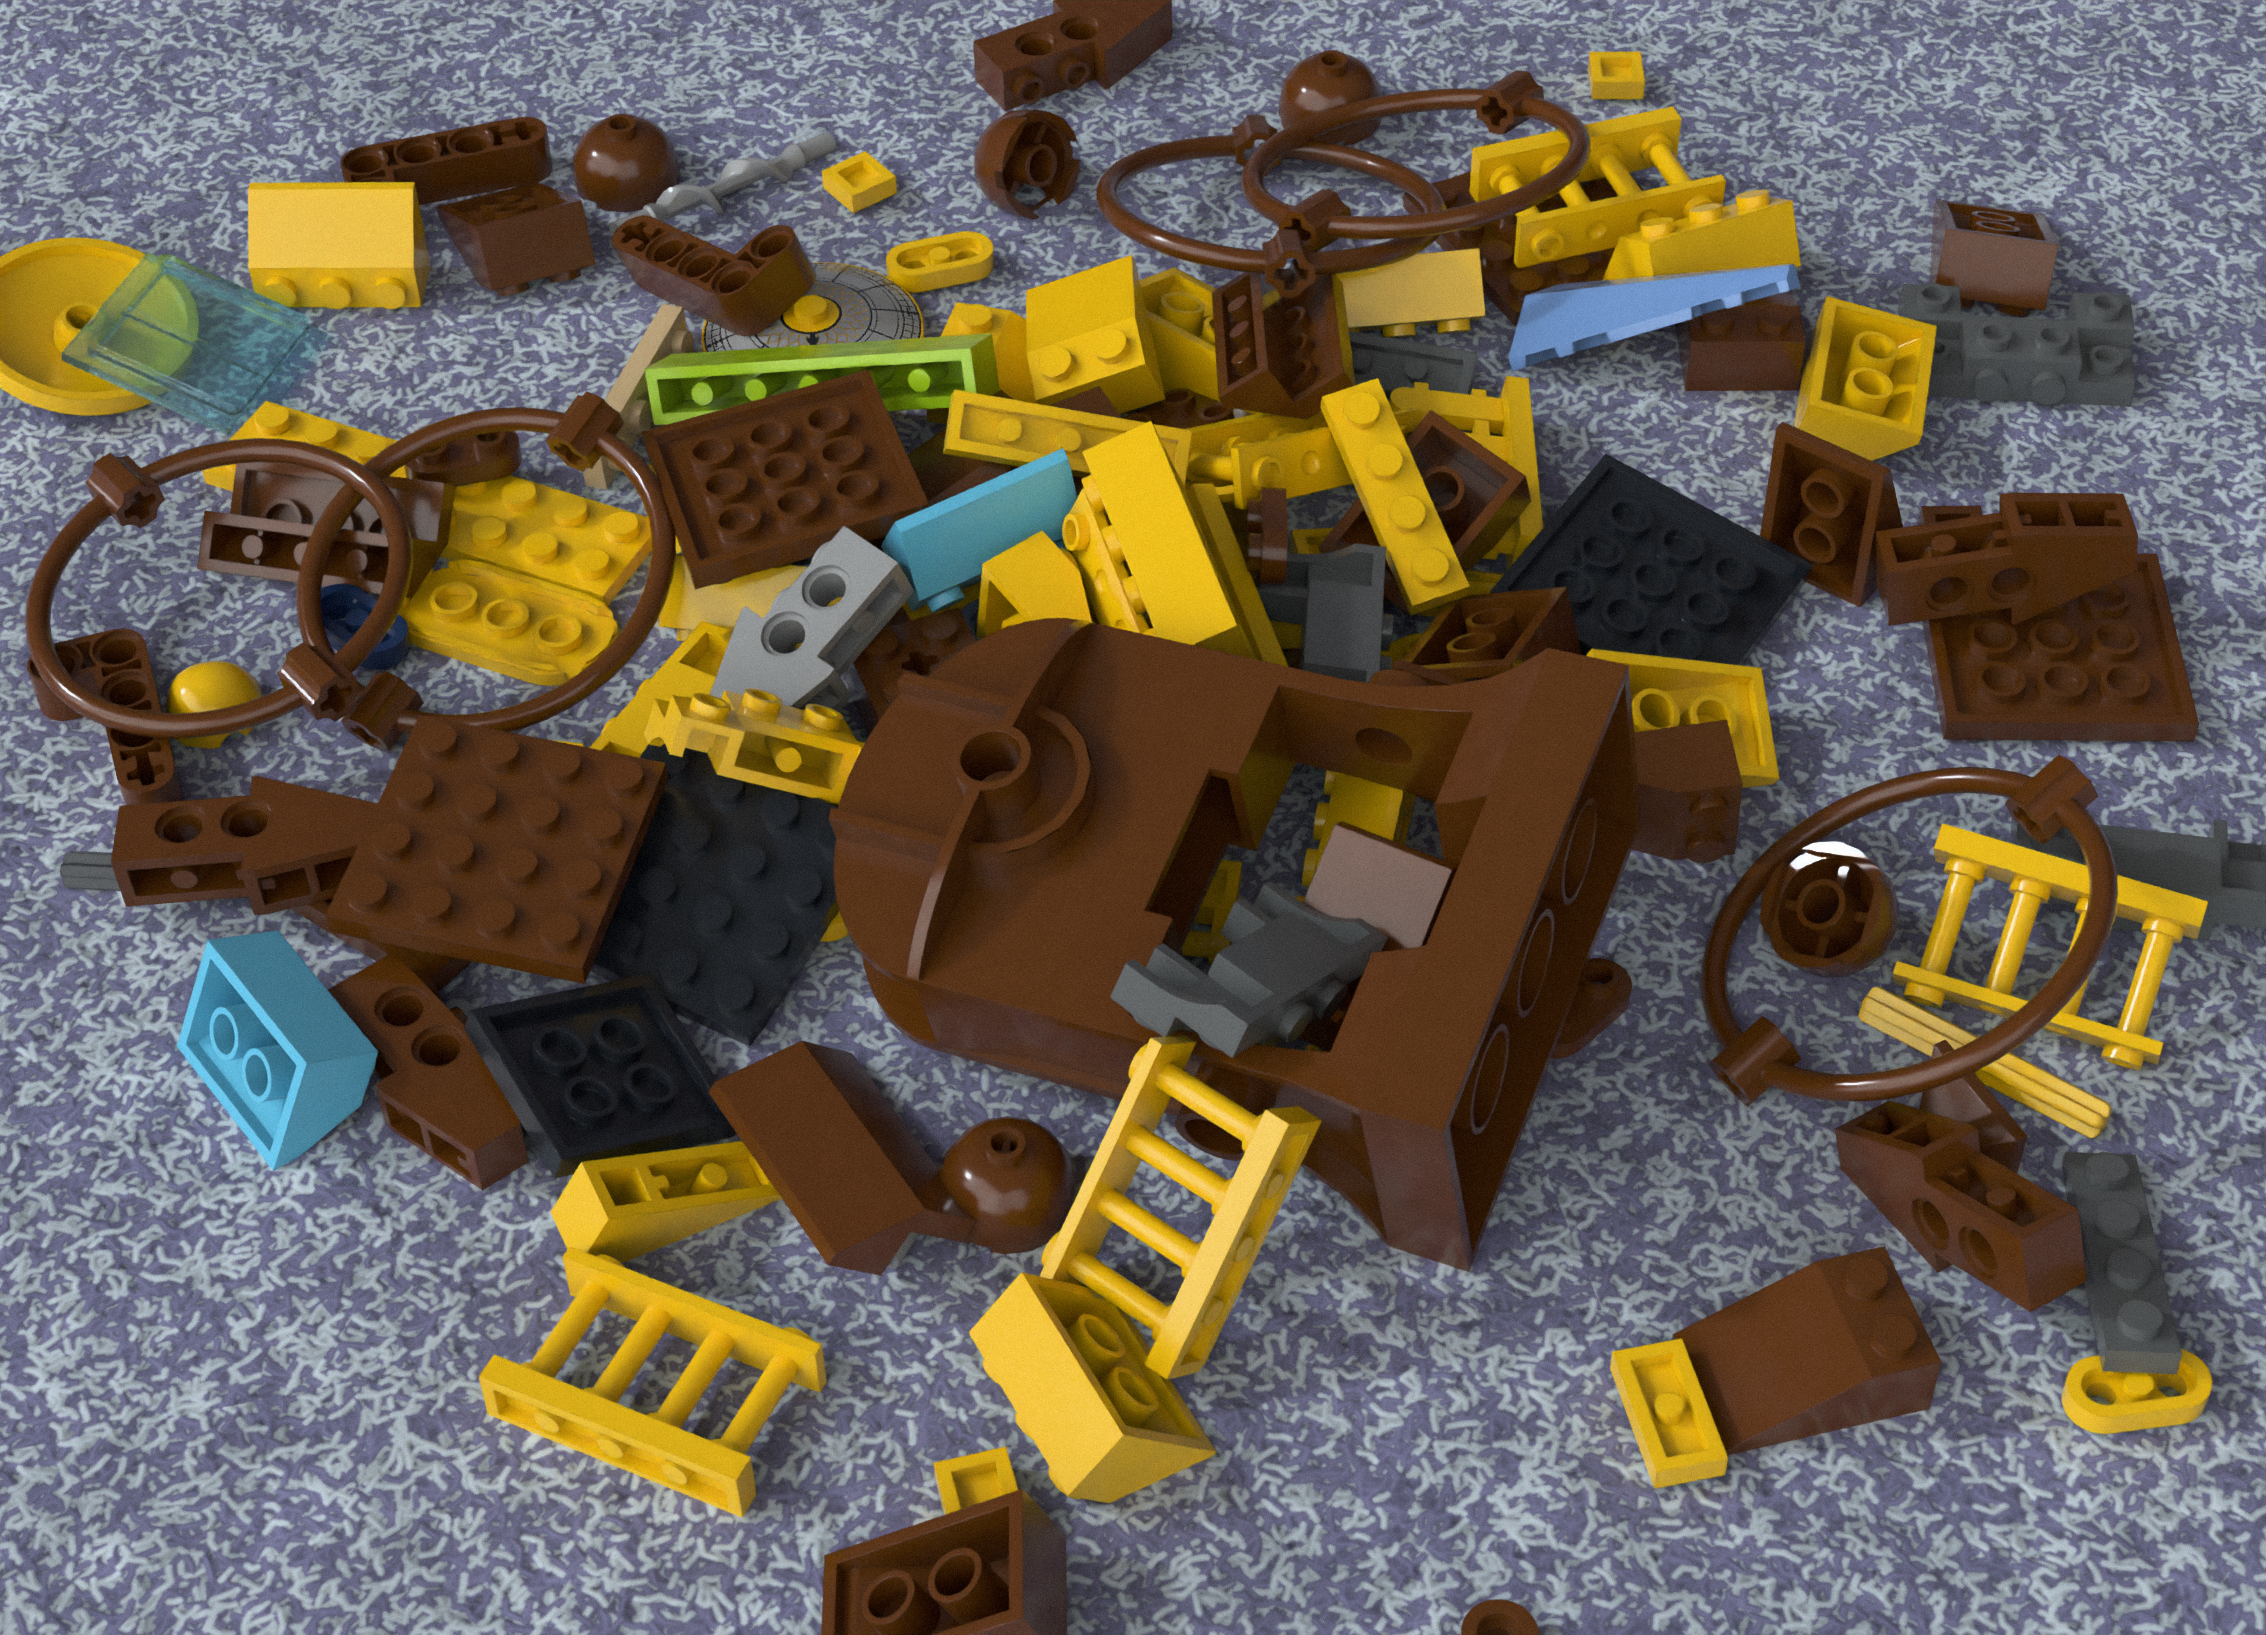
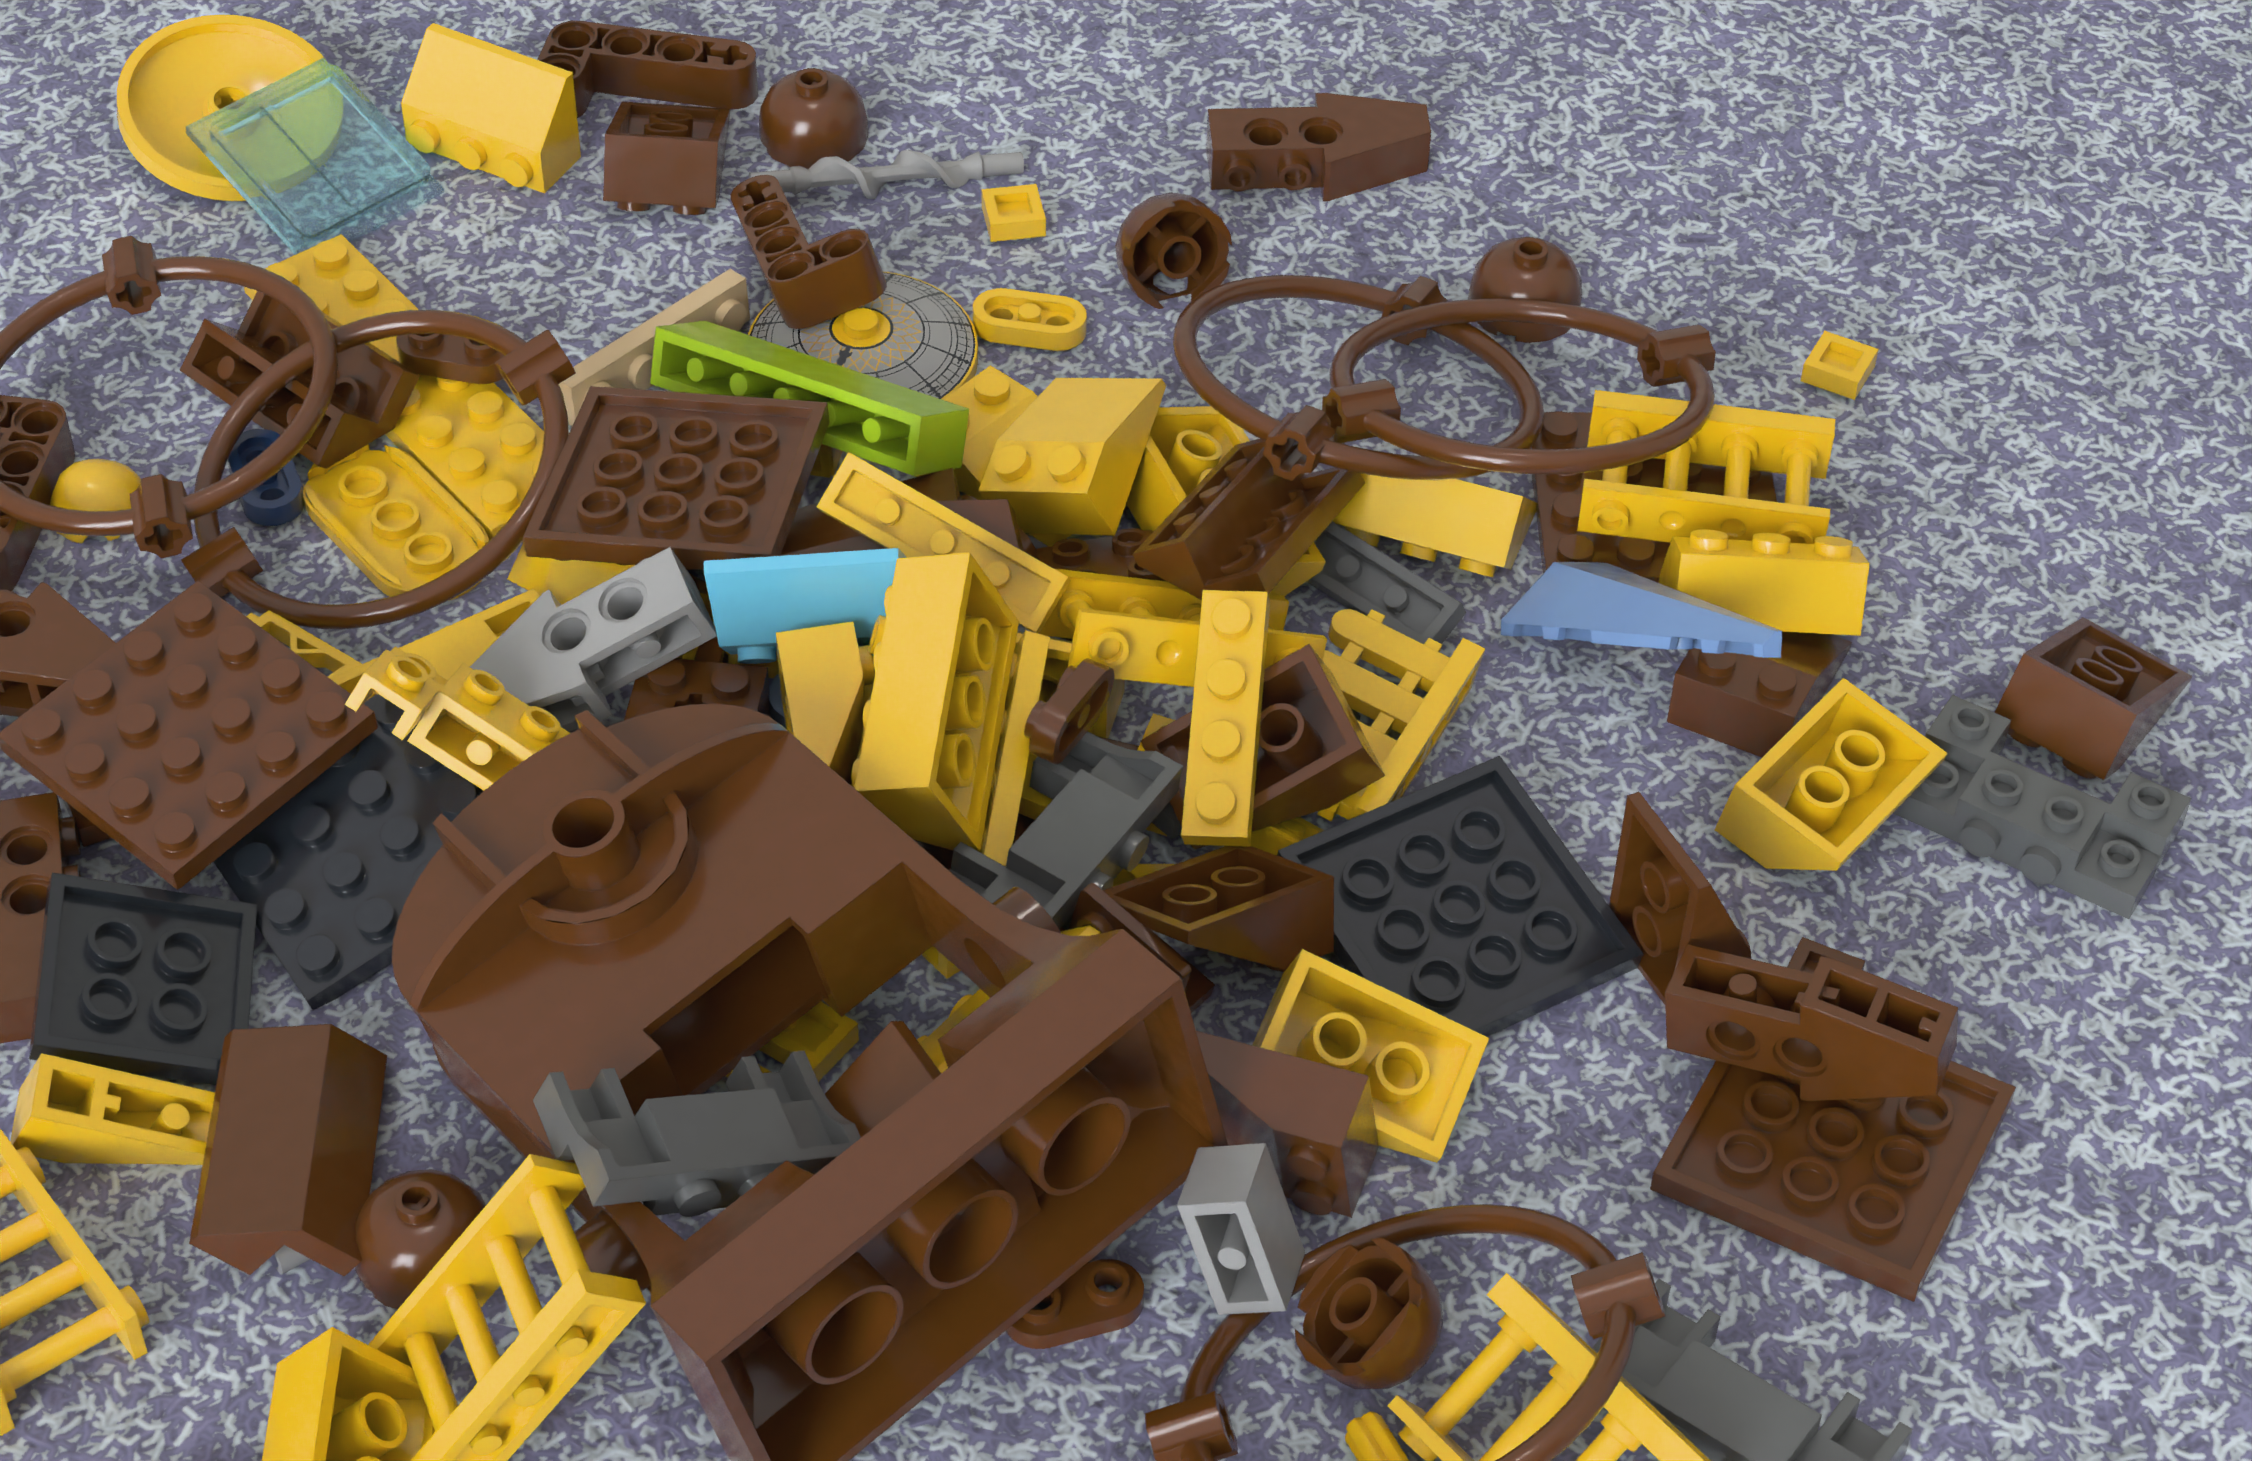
camera: 25 degrees right, 0 degrees up
(1694, 883) = (1241, 1229): none -> light grey brick

